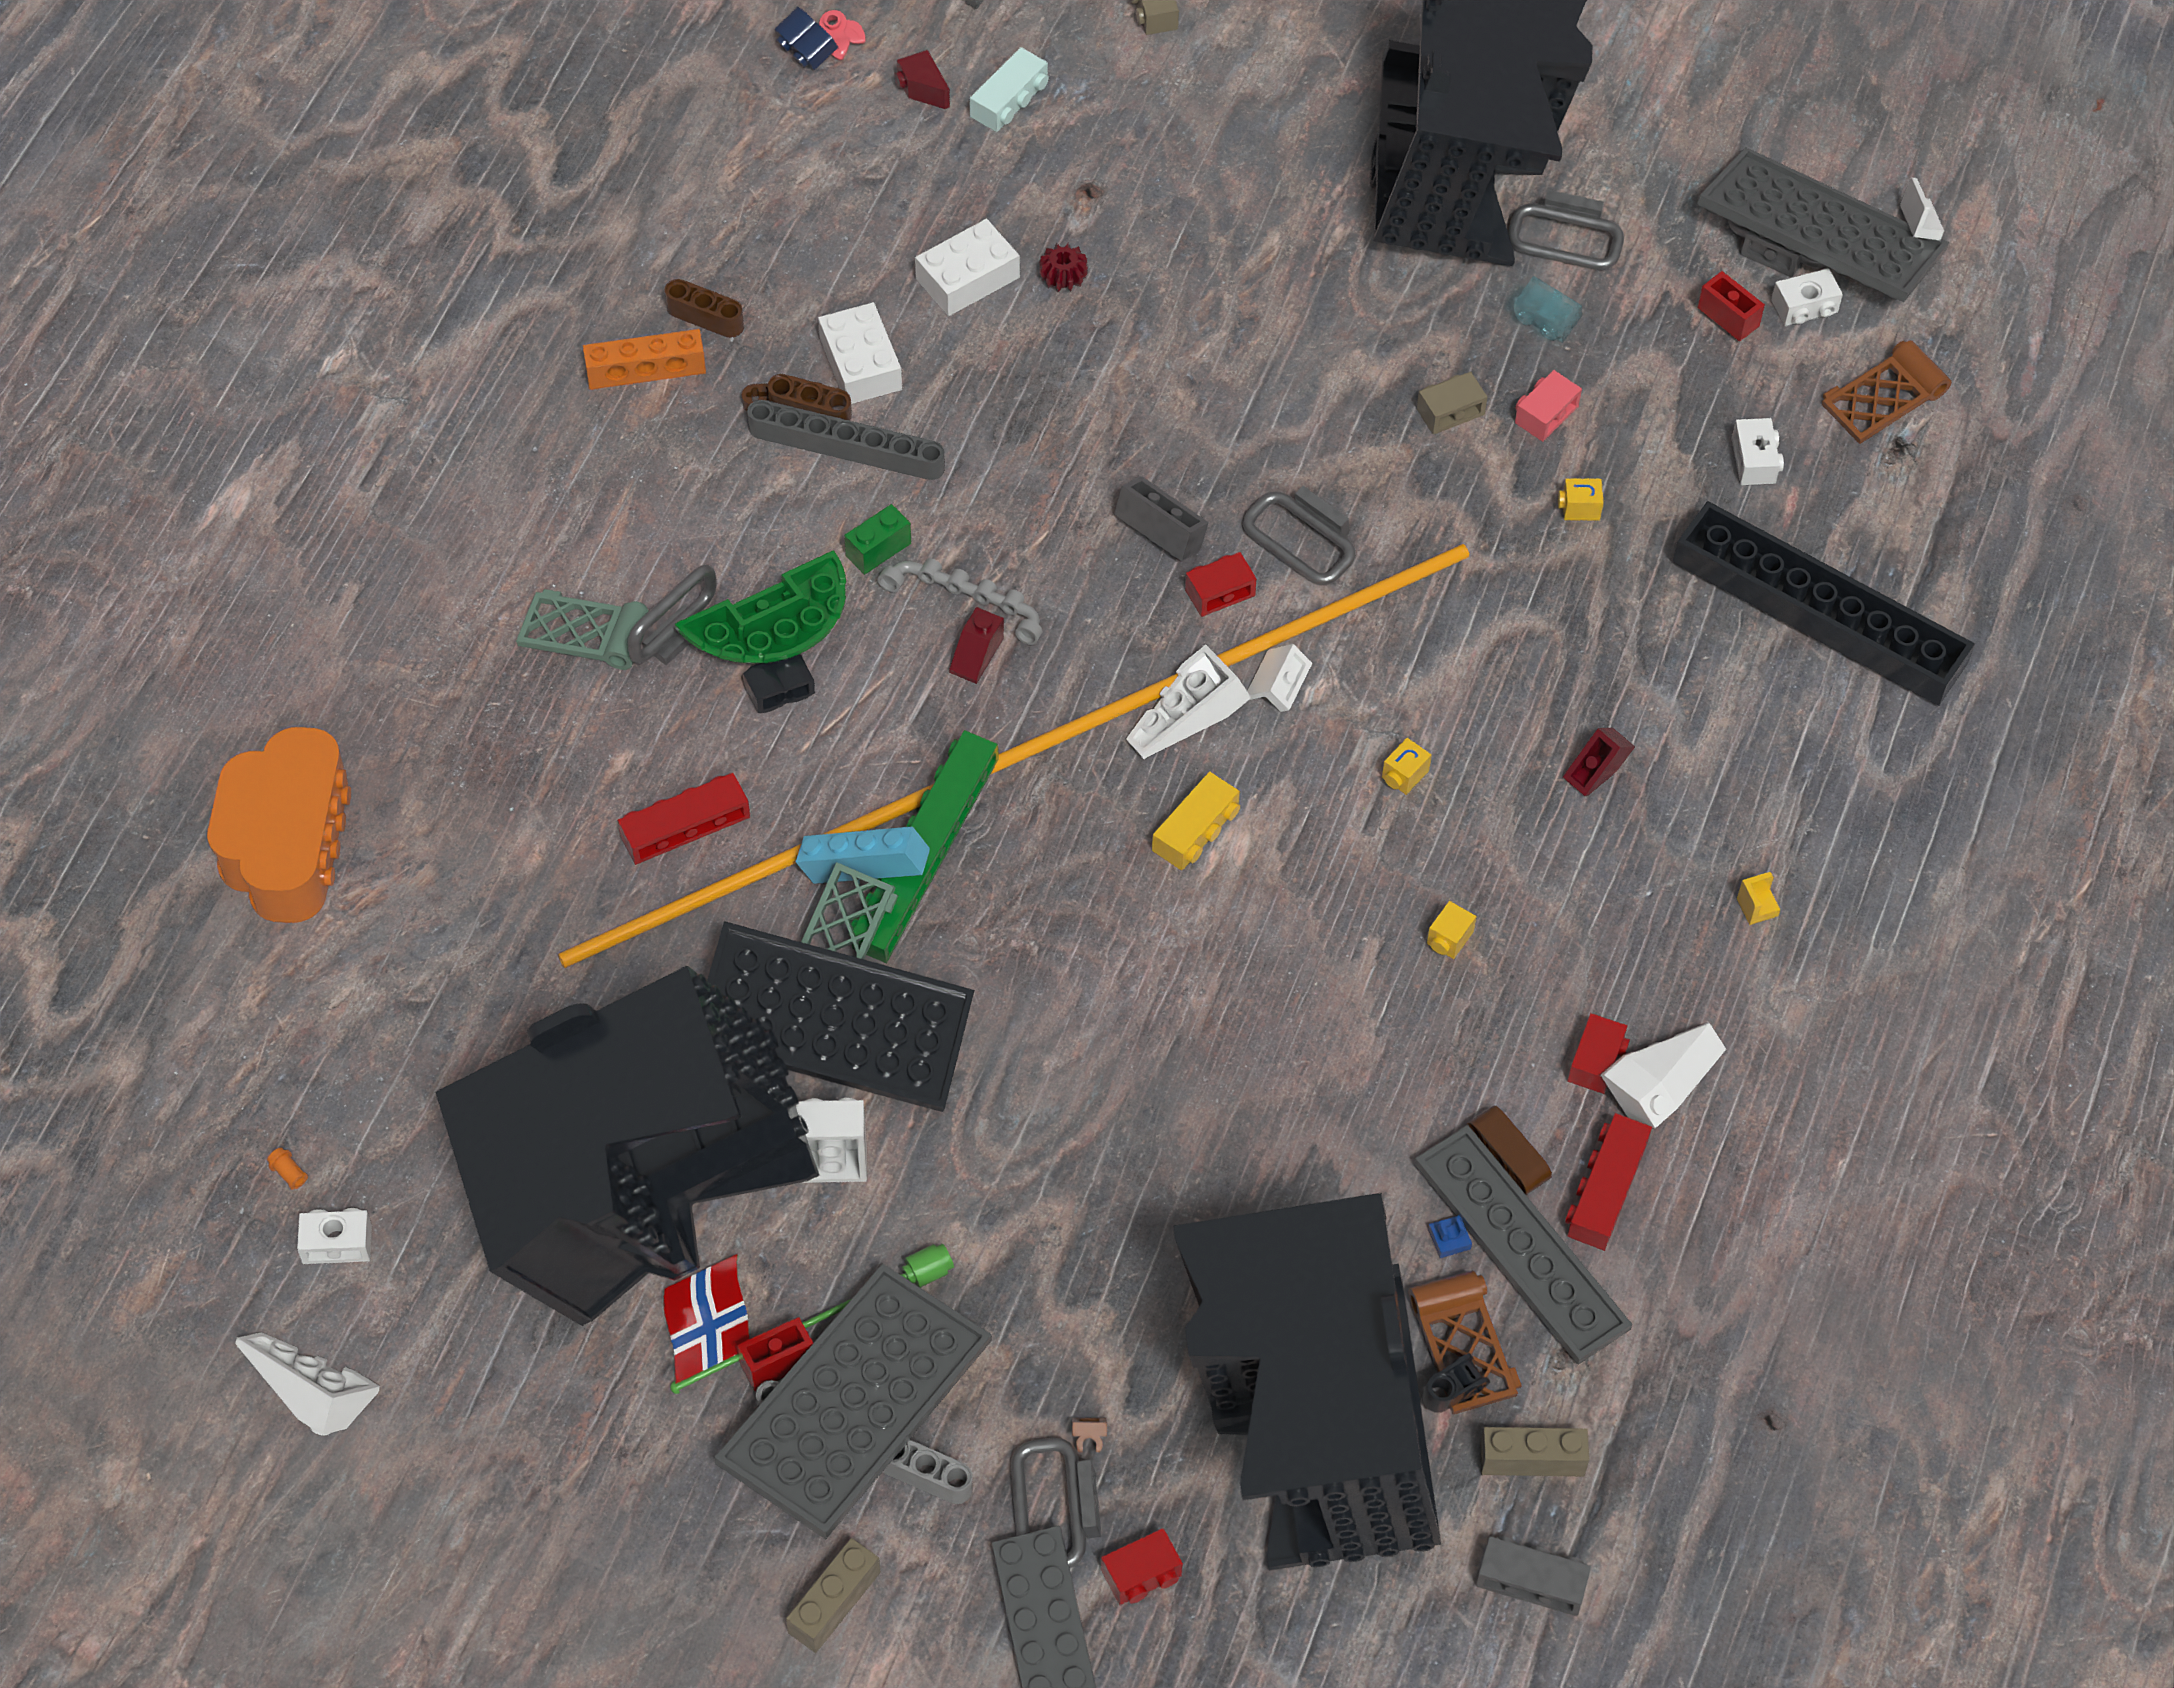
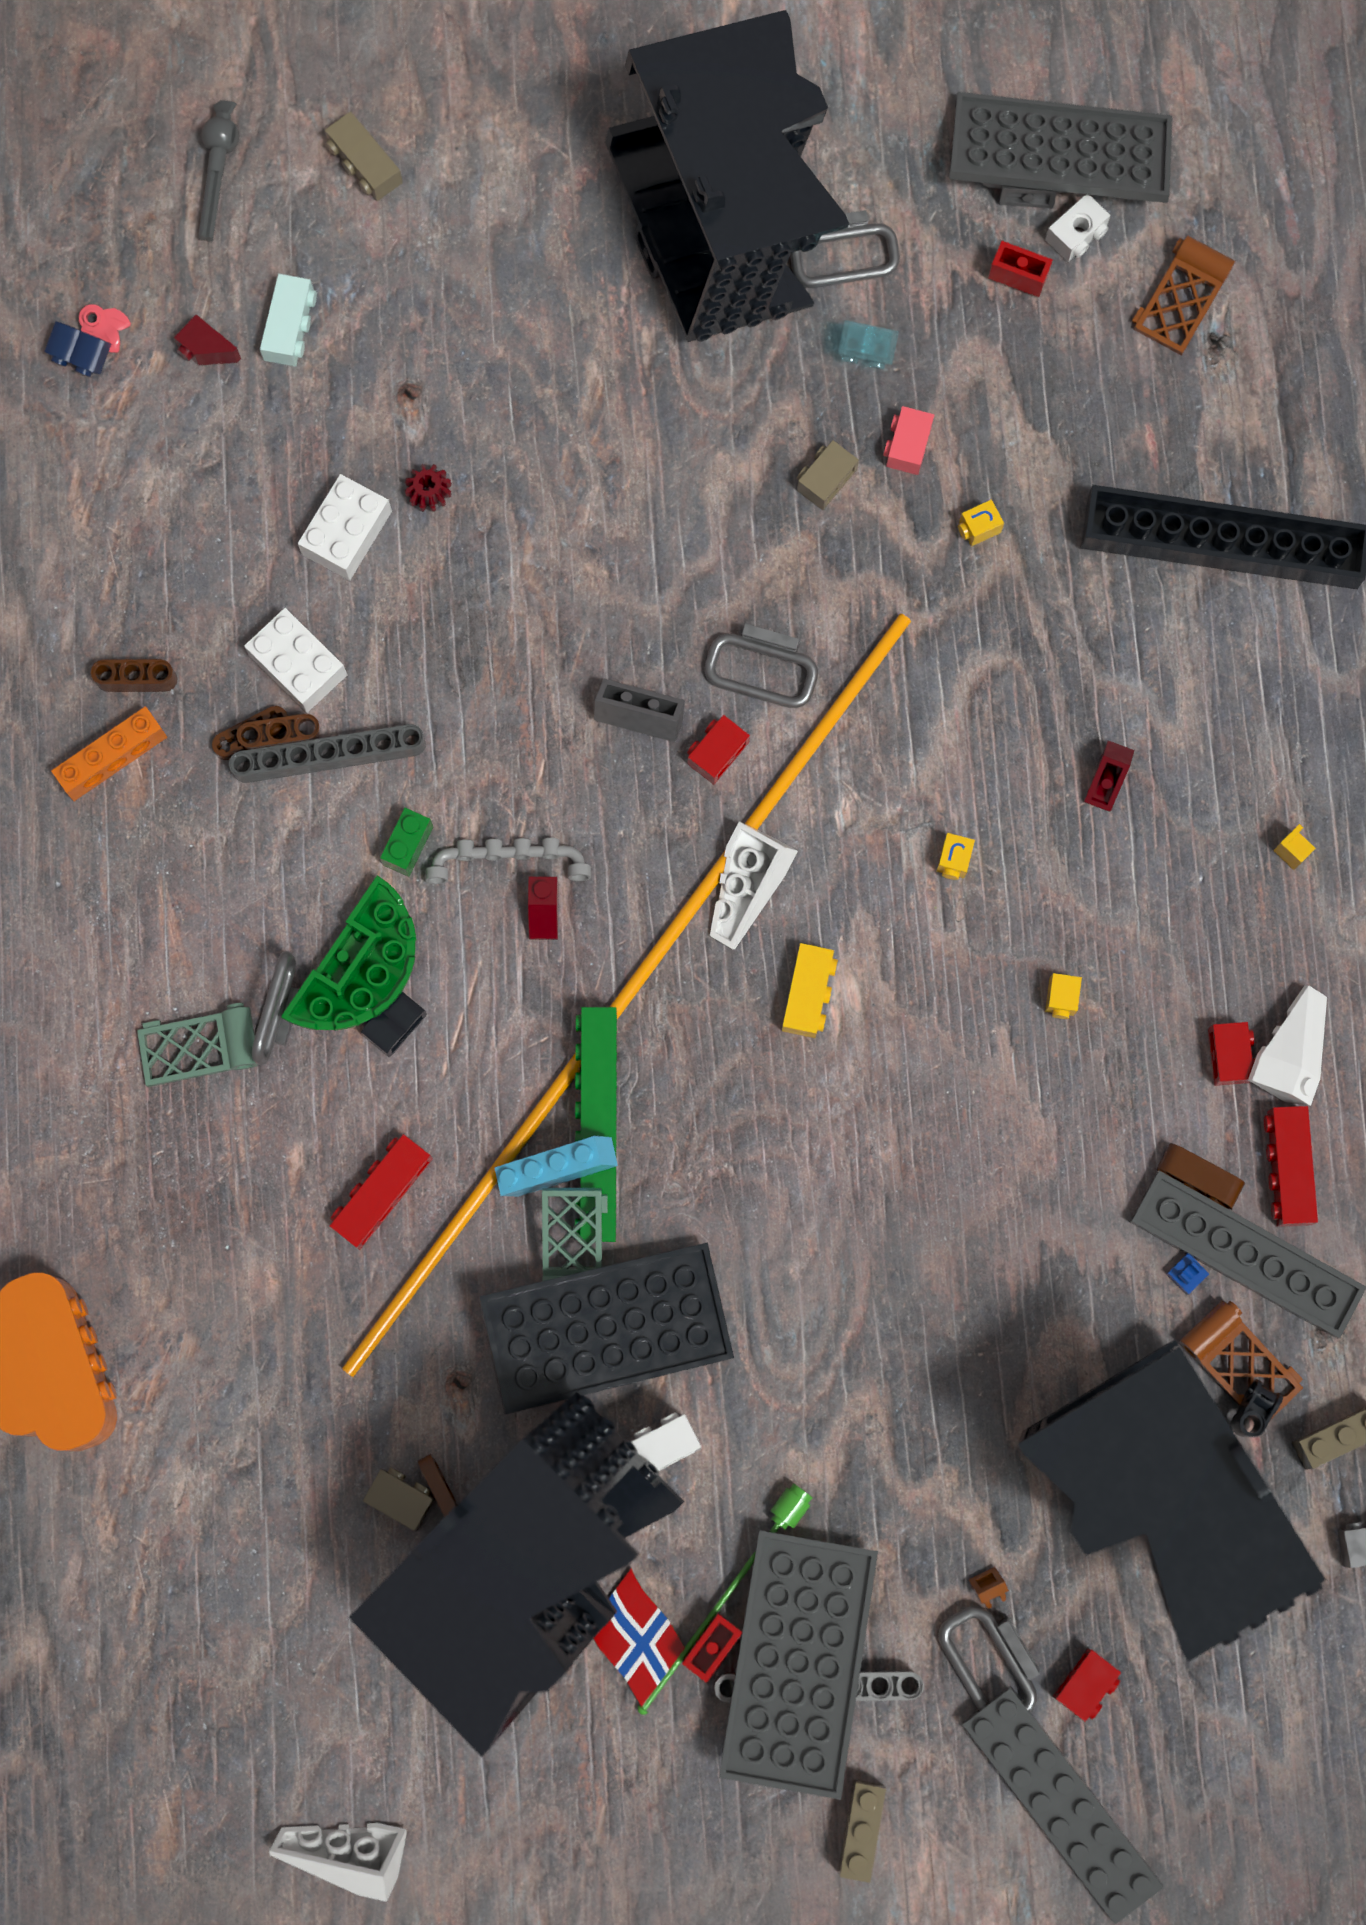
camera: 25 degrees left, 20 degrees up
(281, 1161) = (223, 1674): orange pin -> none
(349, 1246) = (283, 1730): white brick -> none
(1280, 676) = (809, 816): white panel -> none
(1756, 451) = (1104, 420): white brick -> none
(1920, 213) = (1137, 97): white panel -> none

